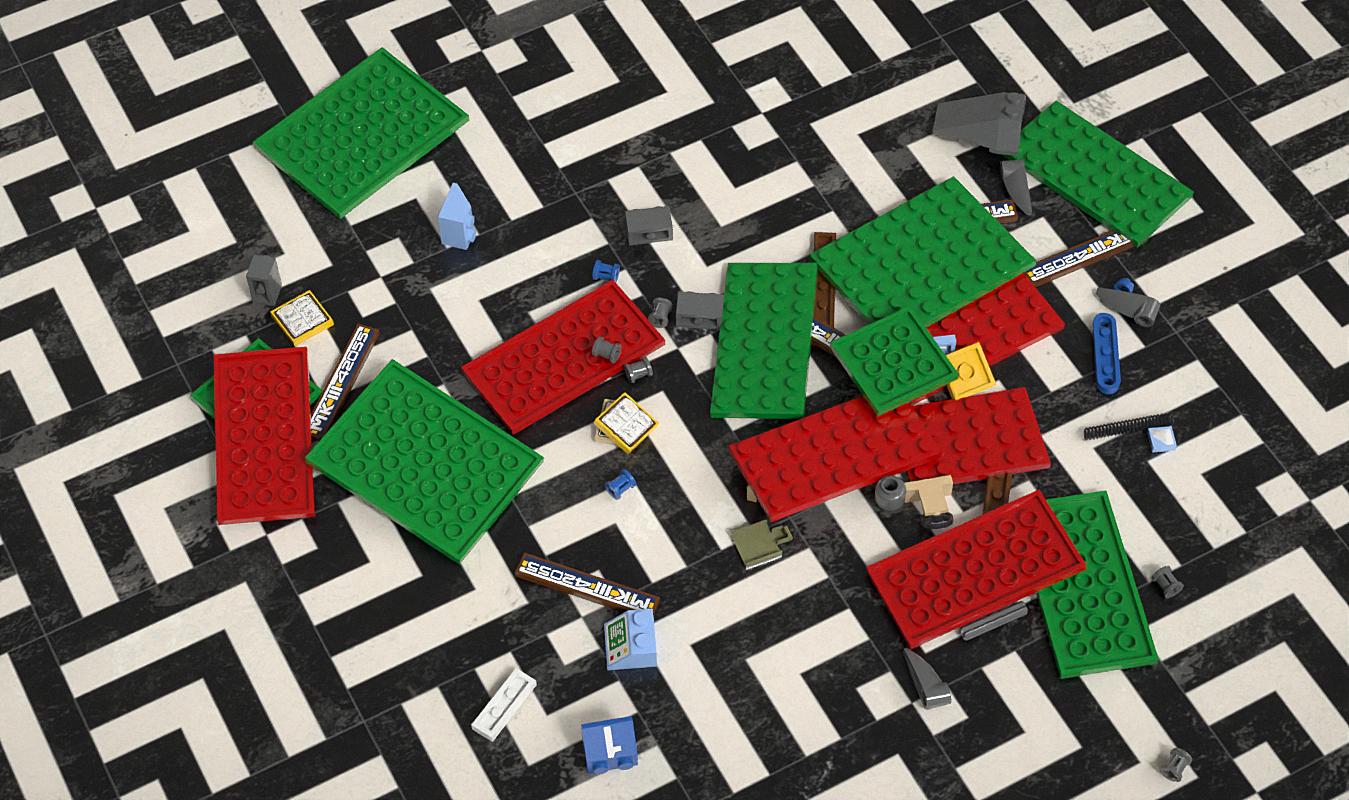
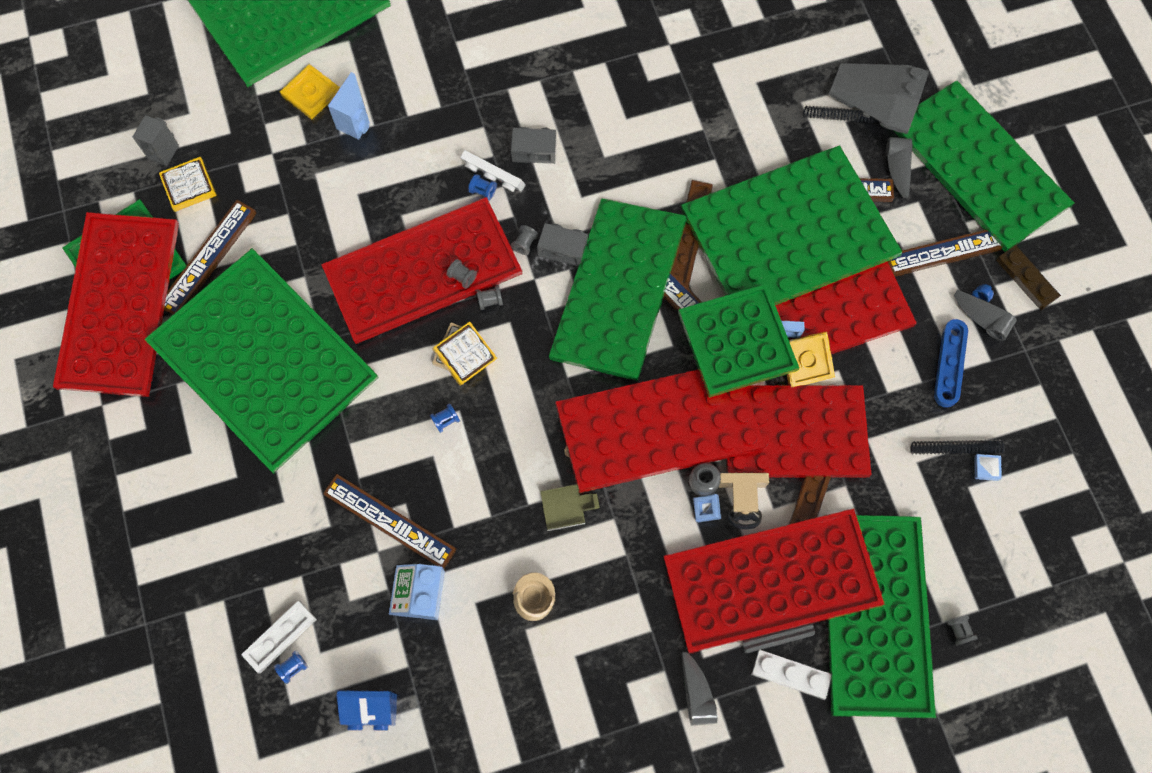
camera: 10 degrees right, 15 degrees up
(406, 213) = (310, 91): none -> yellow tile
(523, 728) = (291, 667): none -> blue bush
(612, 255) = (492, 172): none -> white plate
(748, 622) = (534, 596): none -> tan helmet
(898, 520) = (707, 508): none -> light blue tile
(946, 152) = (838, 113): none -> black piece
(1013, 650) = (791, 674): none -> white plate
(1164, 266) = (1028, 277): none -> dark brown plate

